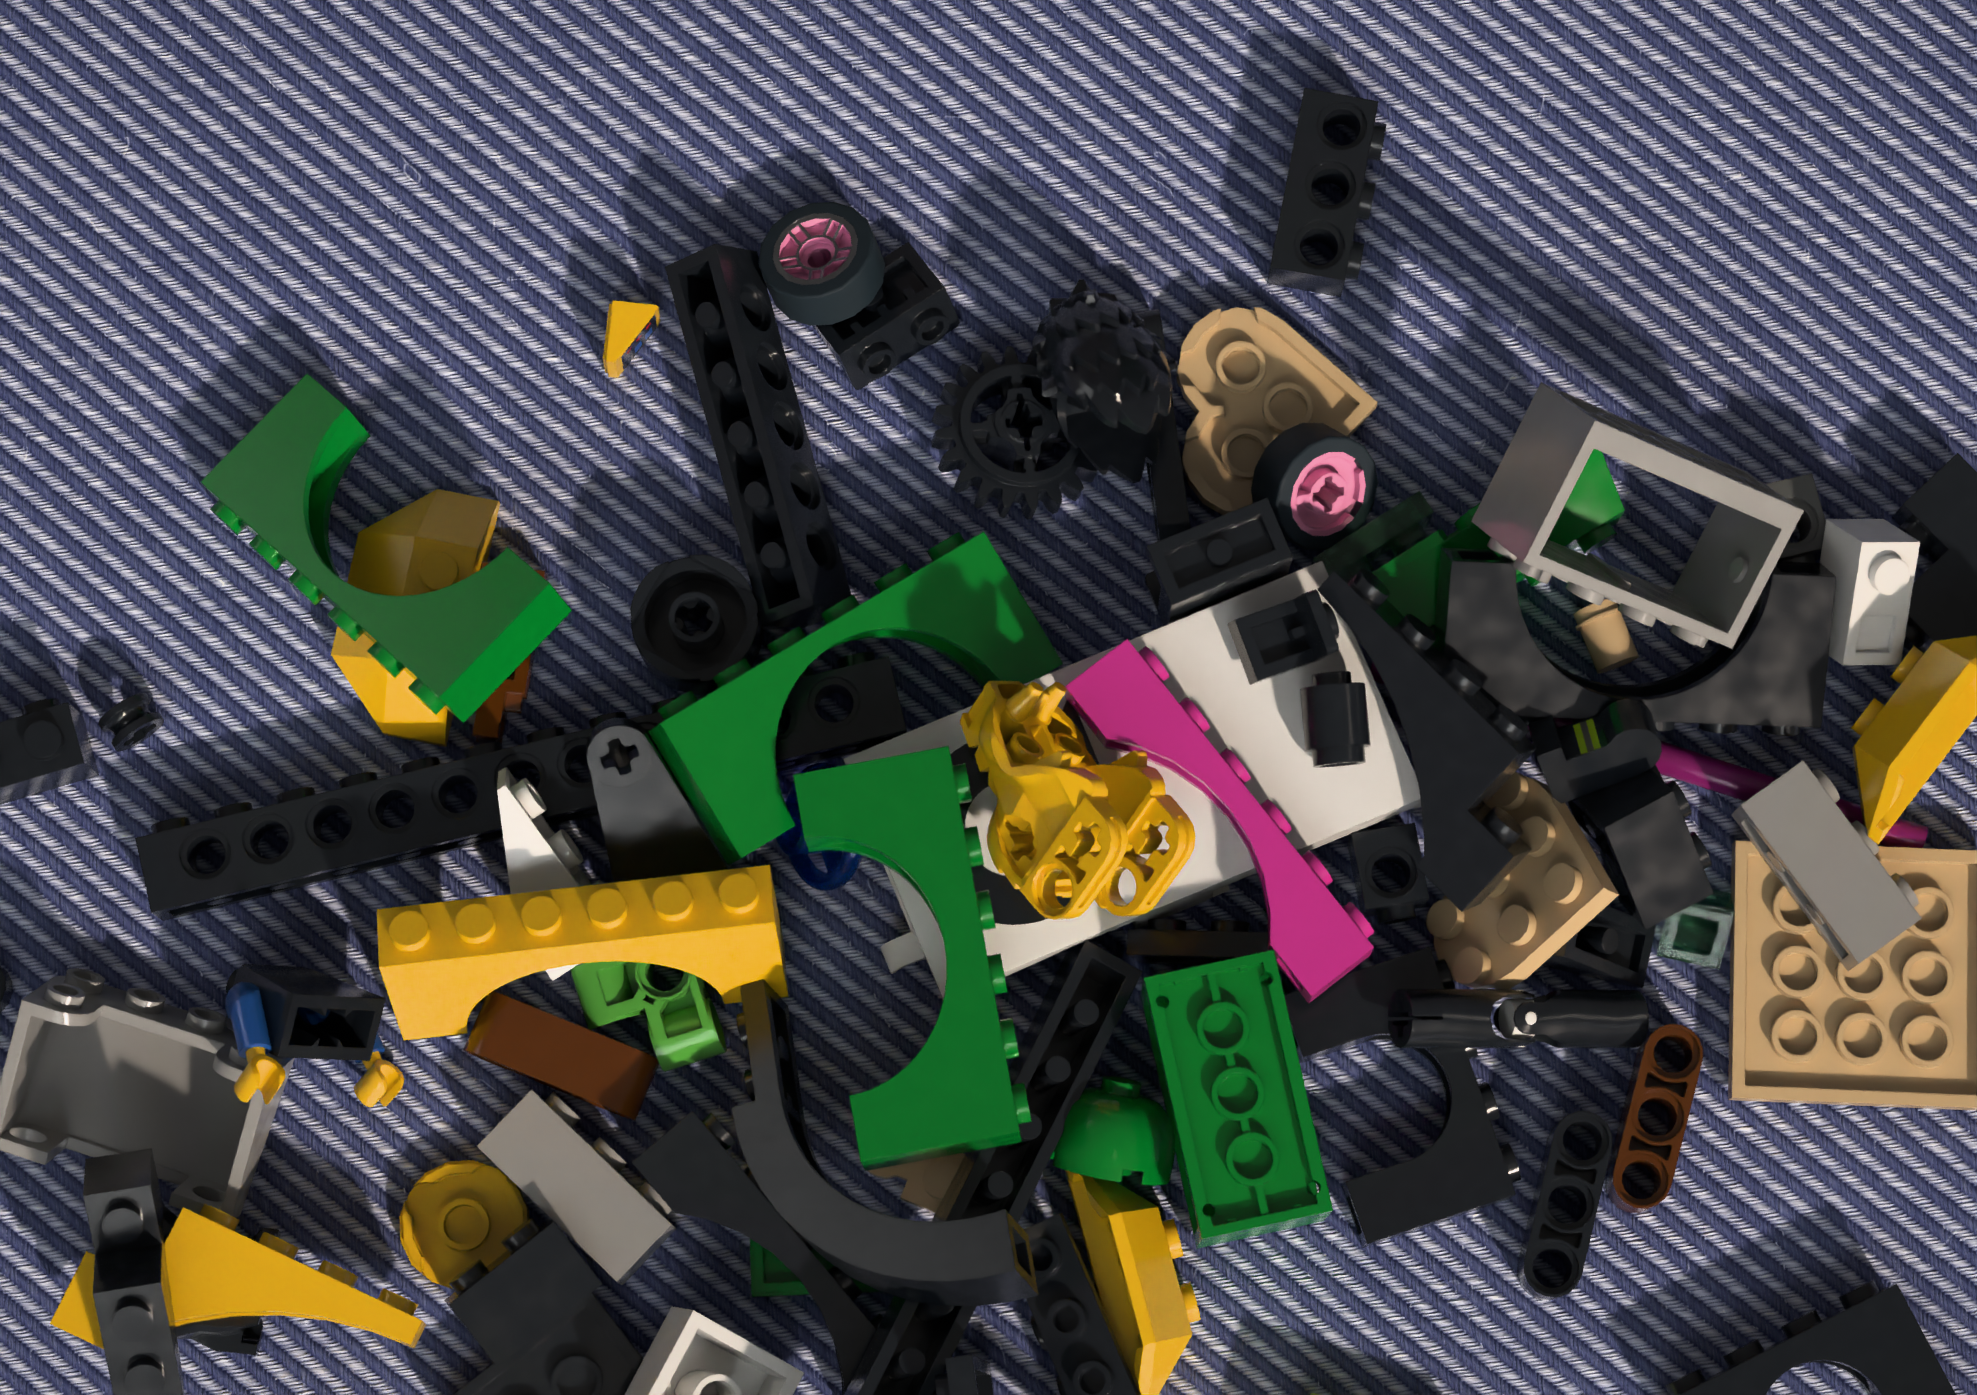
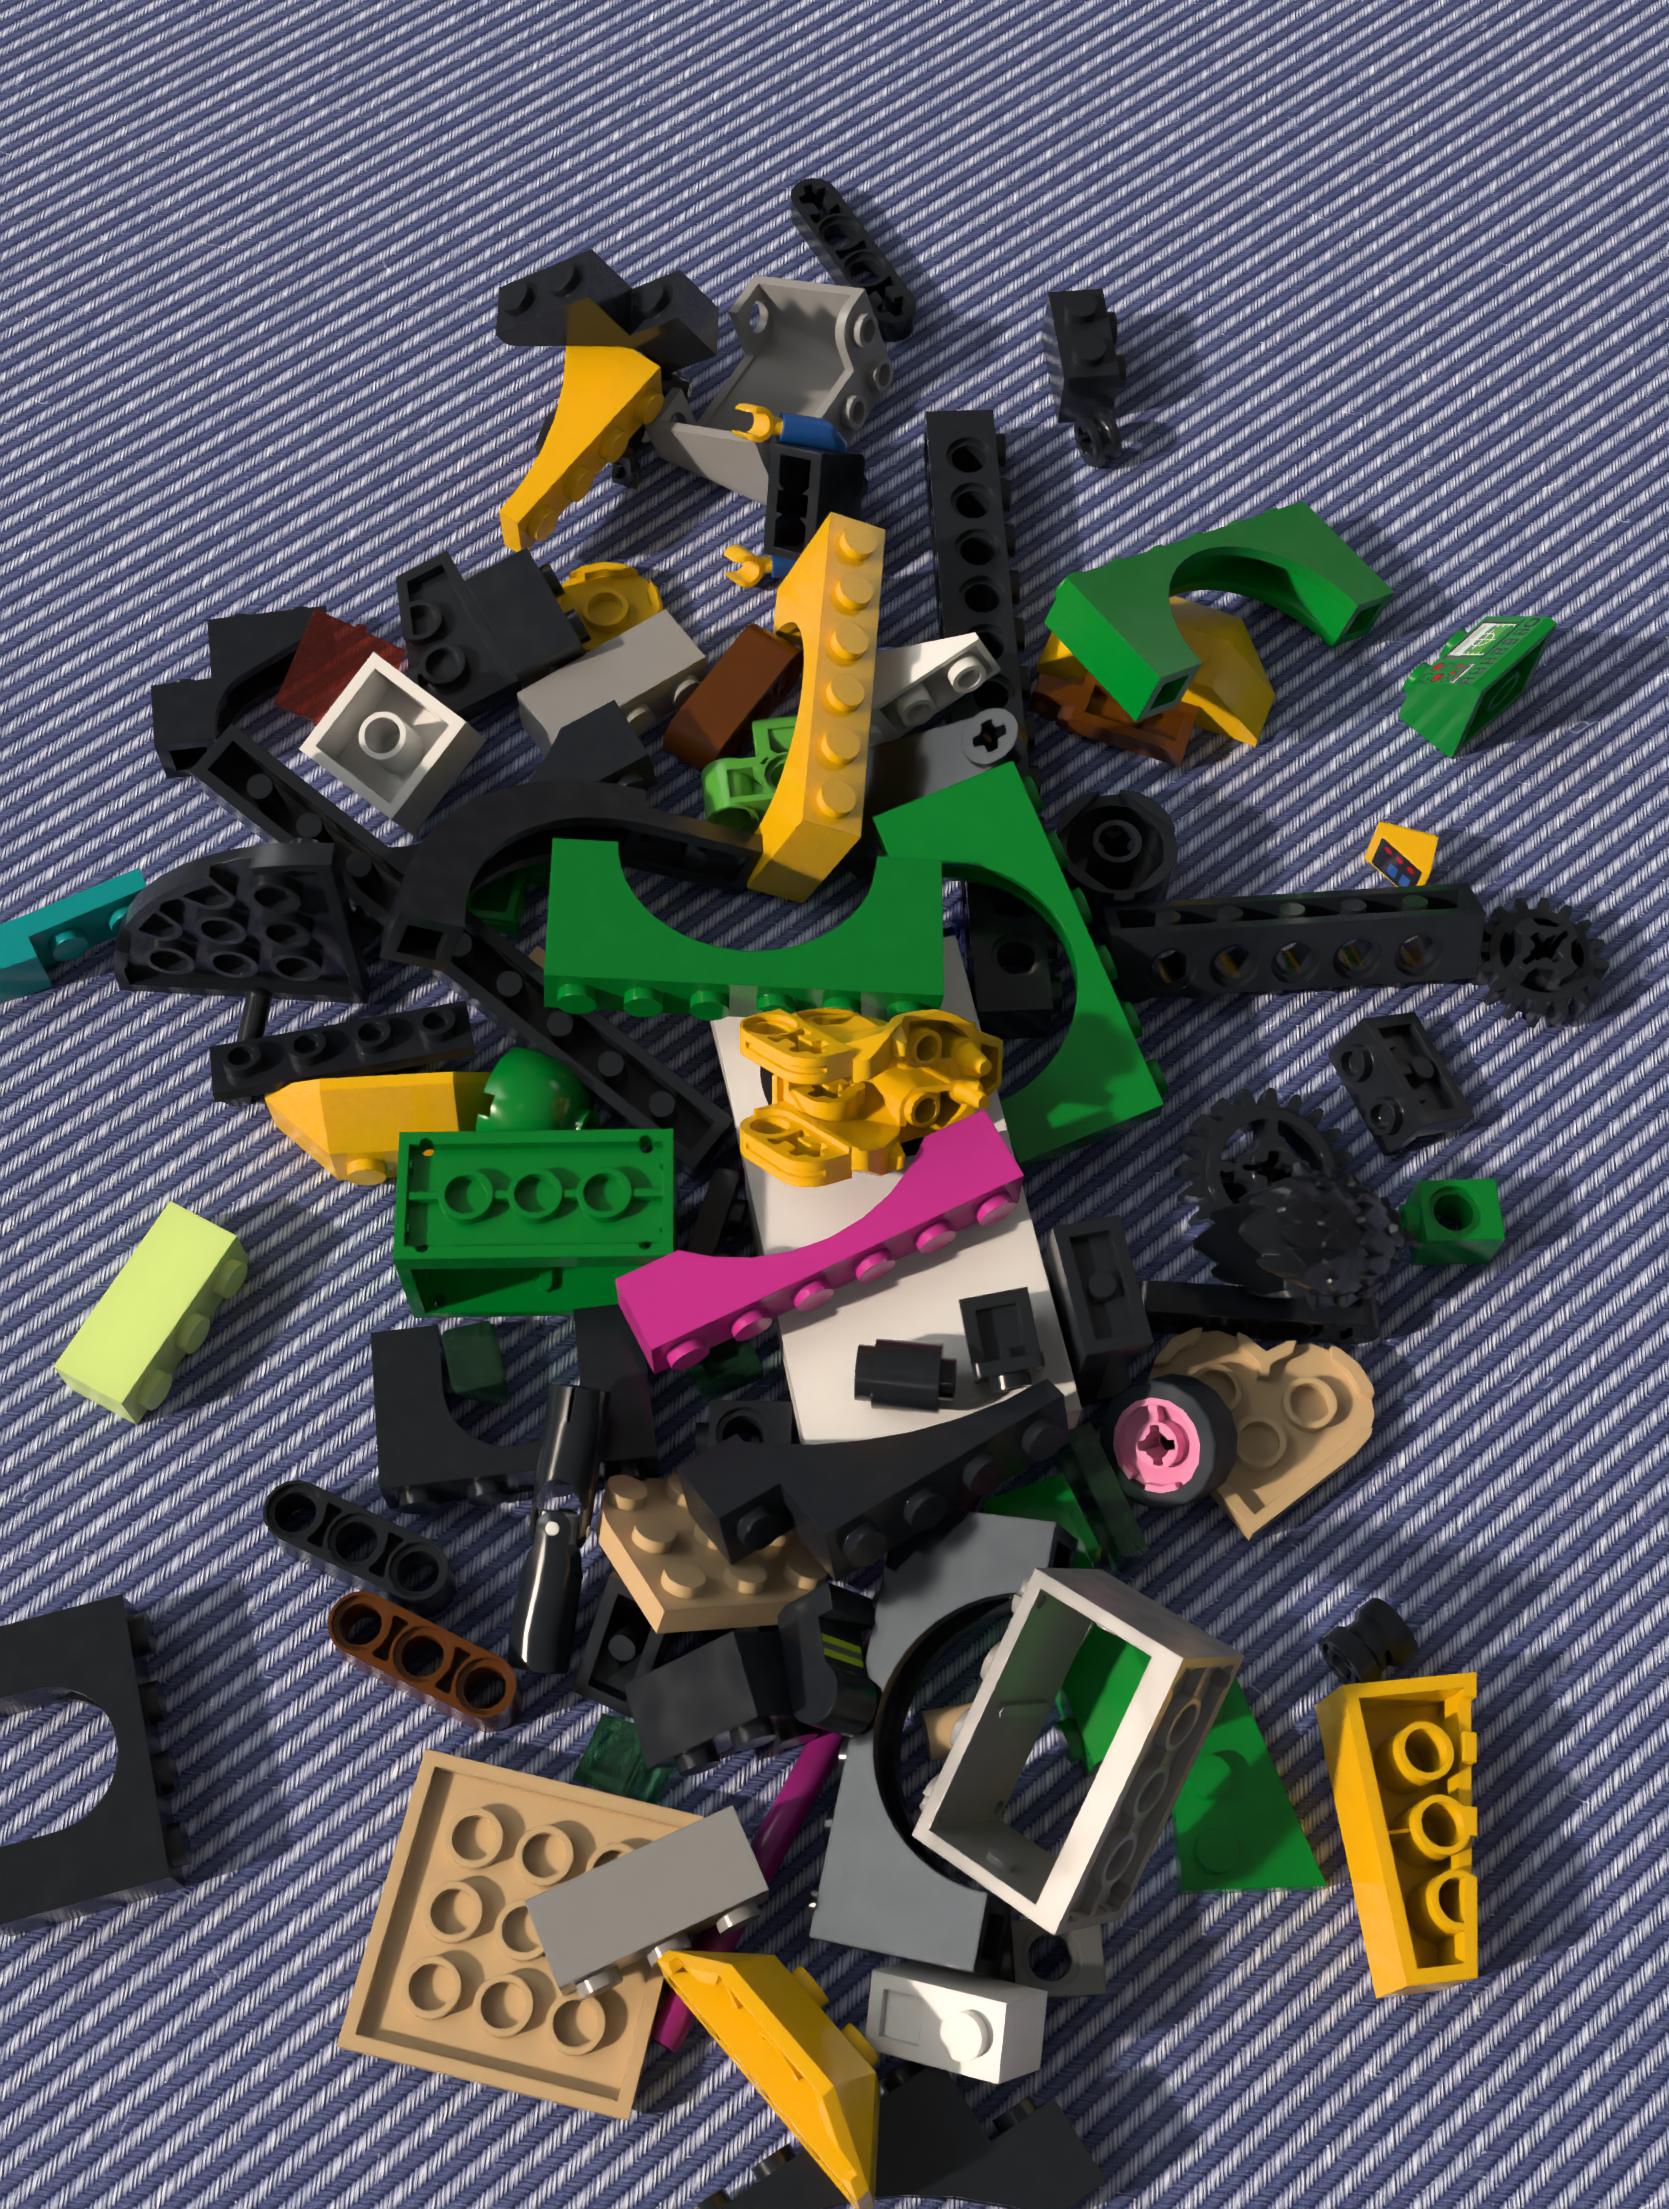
camera: 95 degrees right, 15 degrees down
(398, 282) = (1474, 679): none -> green slope
(741, 173) = (1539, 964): none -> black gear
(821, 263) = (1458, 1027): black wheel -> none
(1024, 228) = (1474, 1209): none -> green brick
(1318, 162) = (1521, 1511): black brick -> none
(1368, 1141) = (476, 1363): none -> clear green slope
(1455, 293) = (1368, 1644): none -> black wheel
(1604, 244) = (1407, 1824): none -> yellow wedge
(1634, 377) = (1235, 1817): none -> green wing

